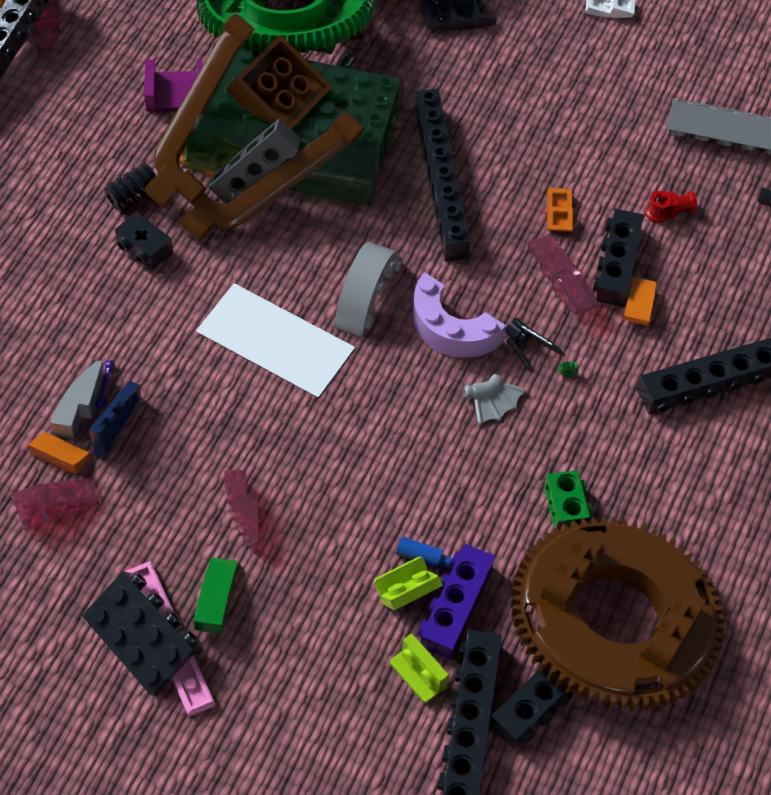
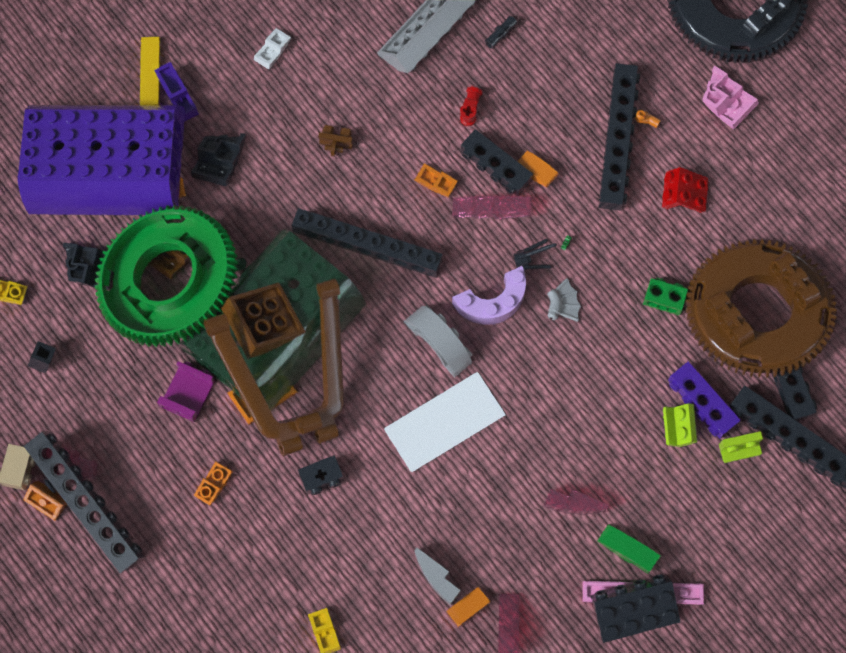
camera: 60 degrees left, 15 degrees up
(78, 151) = (213, 483): none -> orange slope
(110, 365) = (440, 561): dark purple hinge -> none
(114, 418) = (462, 559): dark blue wing -> none
(129, 186) = (268, 464): black piece -> none
(277, 137) = (308, 367): dark grey brick -> none
(432, 556) = (656, 406): blue cylinder -> none
(539, 98) = (333, 142): none -> reddish brown hips
(721, 470) = (685, 189): none -> red bracket

